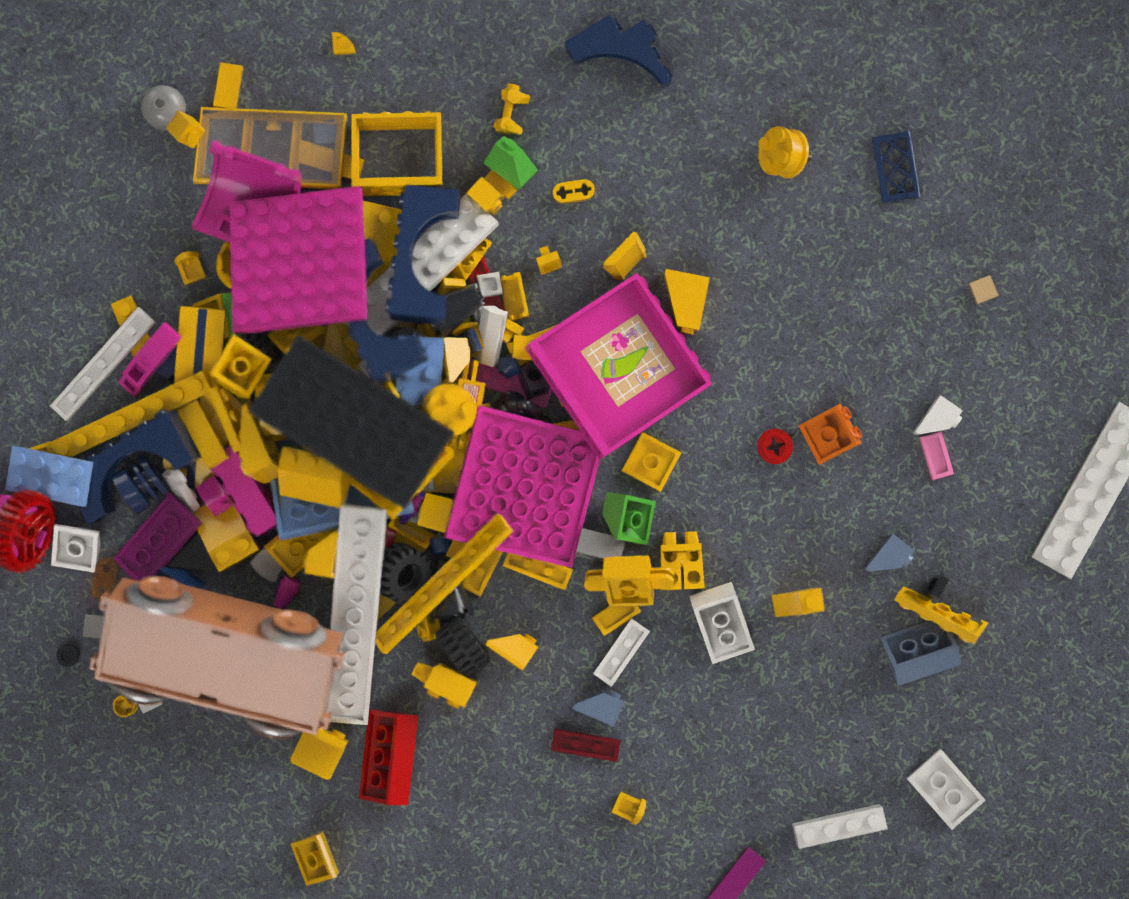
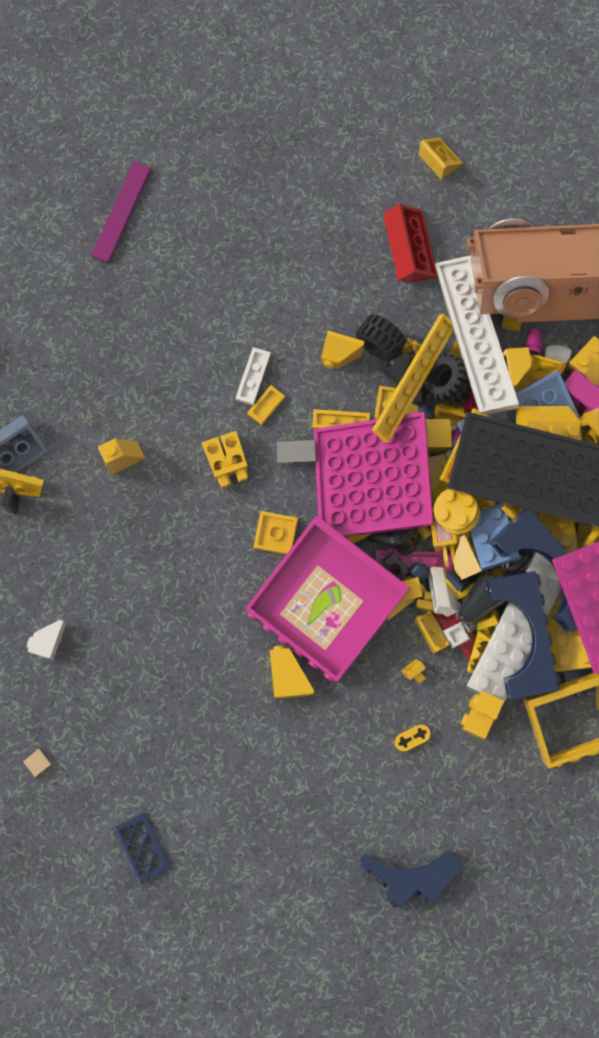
camera: 165 degrees right, 10 degrees down
(320, 752) = (459, 230): yellow bracket -> none
(445, 682) = (385, 305): yellow hinge -> none
(510, 163) = (474, 741): bright green slope -> none
(511, 96) = (491, 803): yellow piece -> none
(585, 745) = (259, 300): dark red tile -> none
(601, 706) = (256, 329): sand blue slope -> none
(625, 257) = (350, 693): yellow slope -> none
(628, 517) = (280, 481): bright green slope -> none
(629, 580) = (264, 428): yellow brick -> none
(629, 808) = (210, 263): yellow tile -> none
(722, 622) = (180, 423): white slope -> none
(783, 152) = (243, 826): yellow wheel -> none
(784, 451) = (168, 575): red gear -> none
(831, 433) = (133, 600): orange plate -> none
(839, 826) = (40, 296): white brick -> none
(890, 555) = (56, 515): sand blue slope -> none
(936, 455) = (39, 609): bright pink tile -> none

